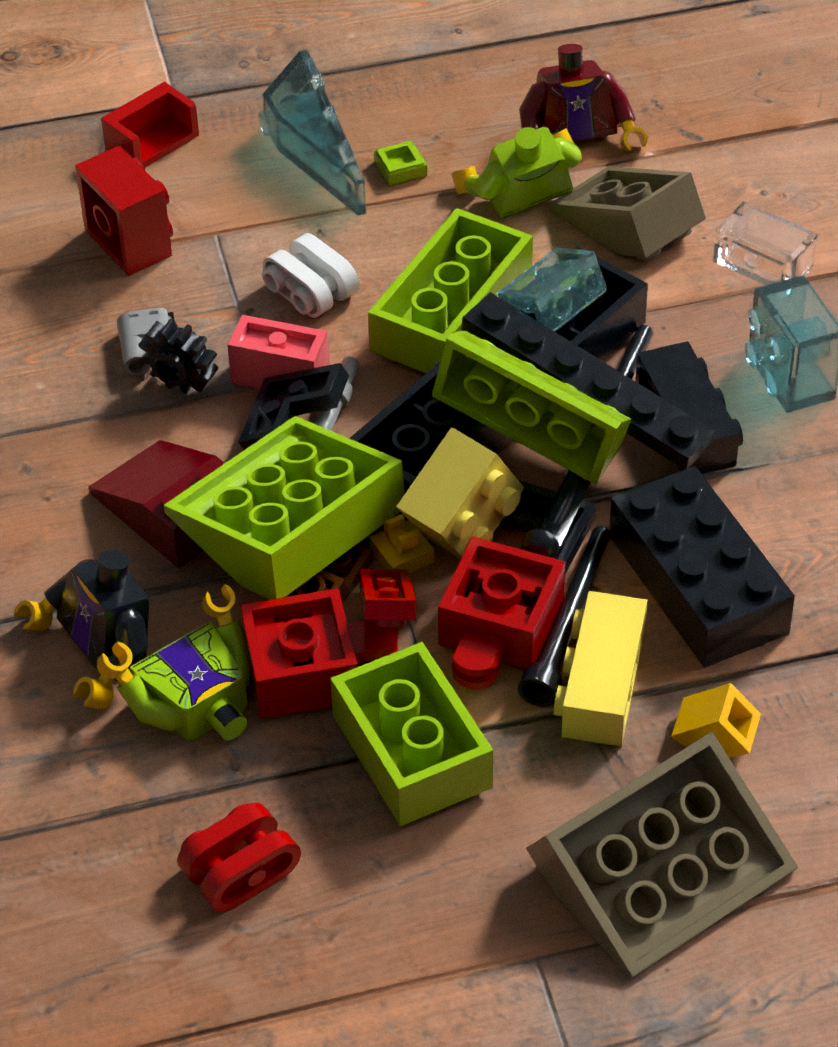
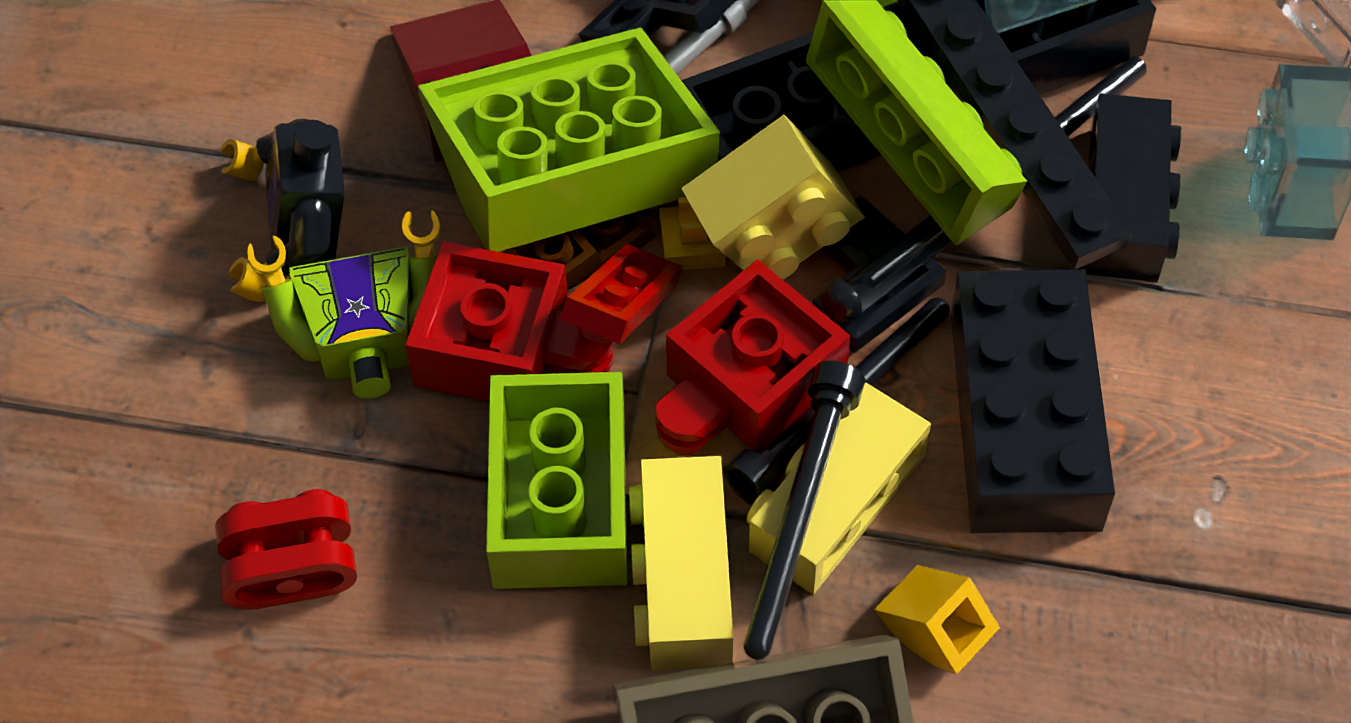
camera: 25 degrees right, 10 degrees up
(531, 755) = (682, 563): none -> light yellow brick
(575, 602) = (834, 393): none -> black piece

